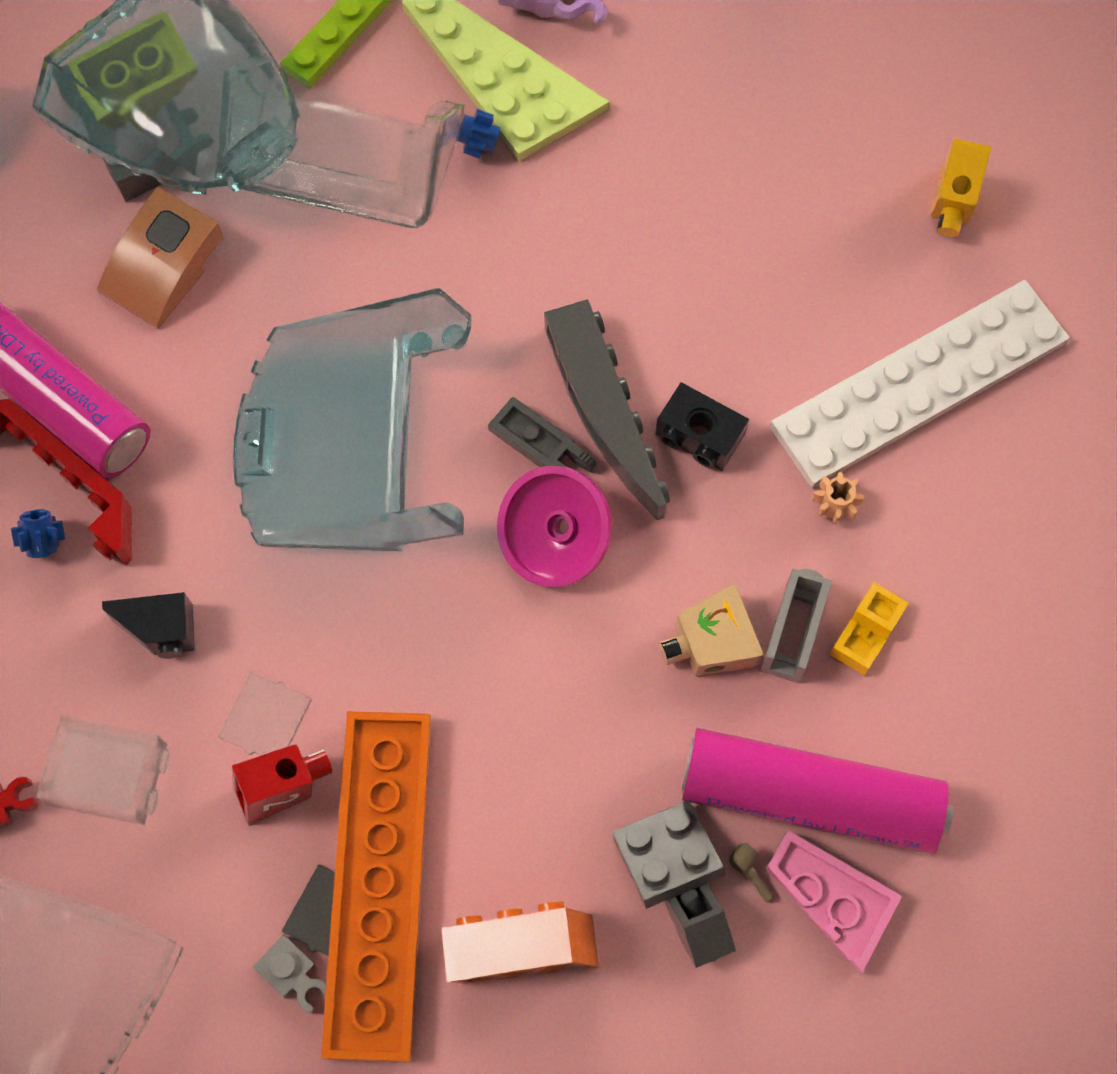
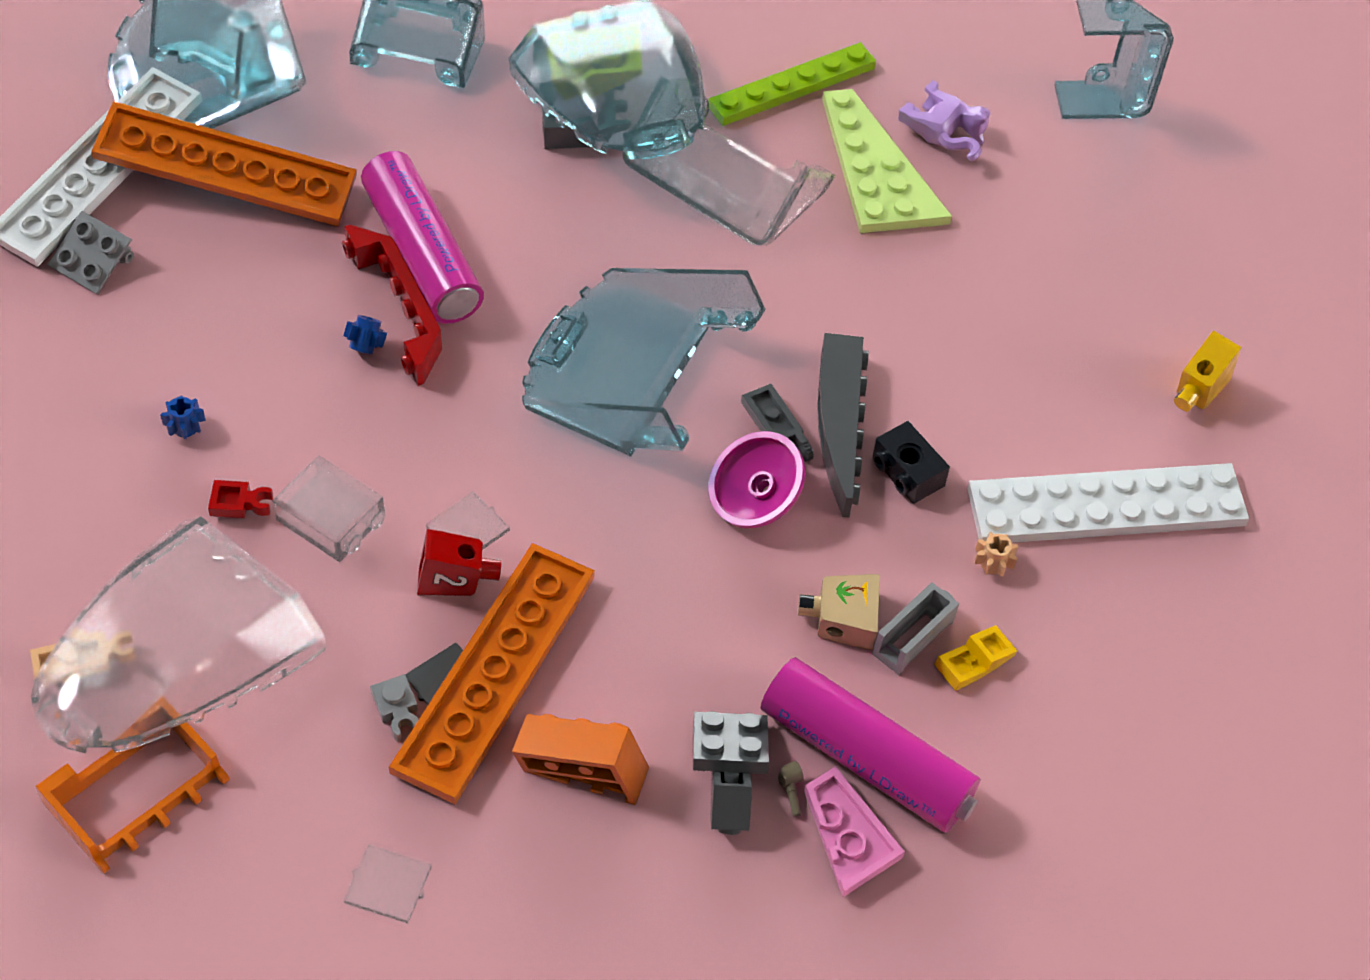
camera: 20 degrees right, 15 degrees down
(157, 622) = (420, 426): black slope -> none
(159, 257) = (550, 191): nougat slope -> none
(478, 133) = (836, 198): blue gear -> none

